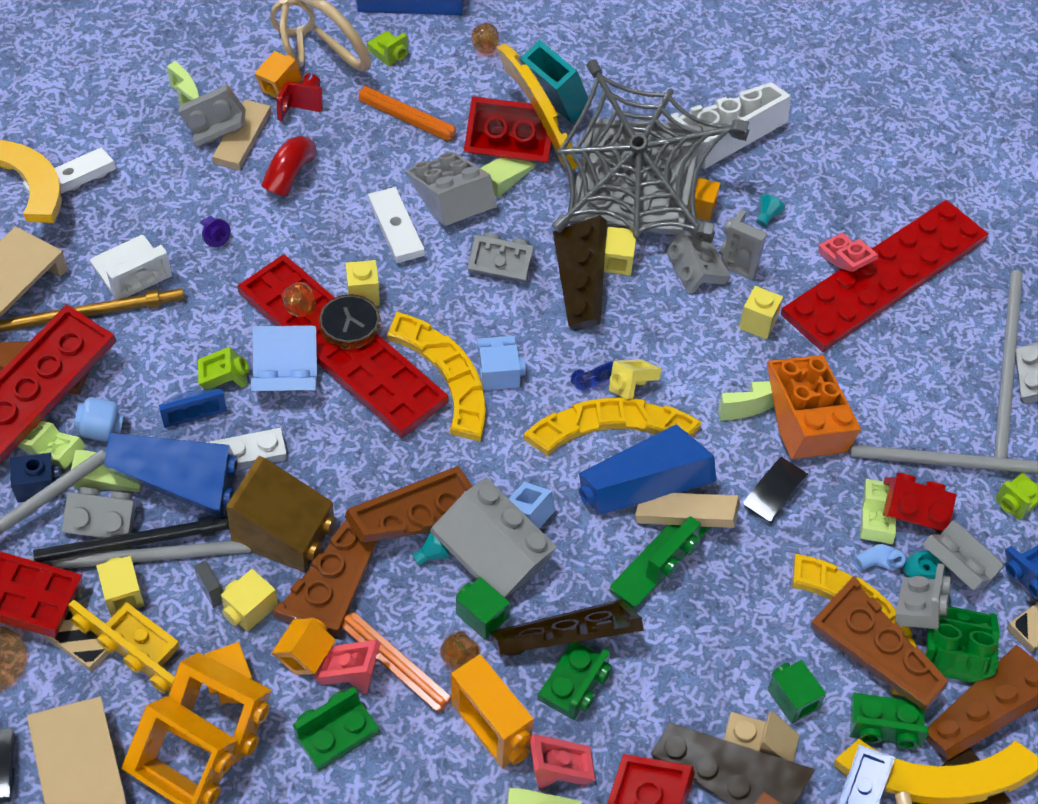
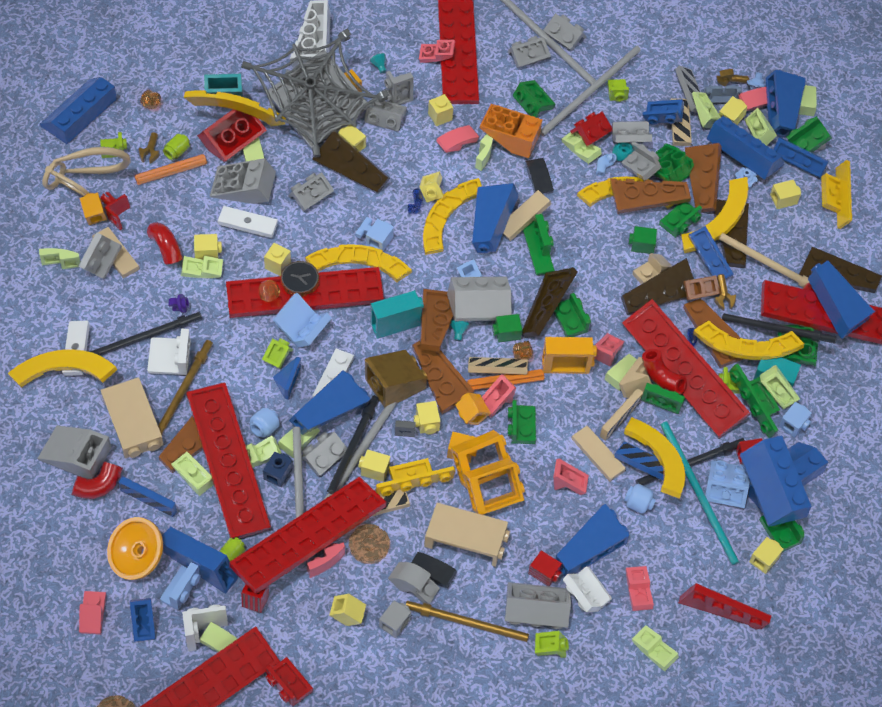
camera: 55 degrees left, 5 degrees up
(190, 249) = (181, 322): none -> black bar
(289, 222) = (198, 268): none -> yellowish green slope
(320, 207) = (207, 246): none -> light yellow brick
(378, 453) = (396, 314): none -> teal brick
(407, 634) = (497, 365): none -> tan tile
(415, 81) = (150, 149): none -> pearl gold bar
(441, 97) = (176, 146): none -> lime brick
(733, 355) = (456, 138): none -> coral slope
(894, 403) = (533, 98): none -> green bracket
(962, 353) = (529, 52): none -> light grey bracket

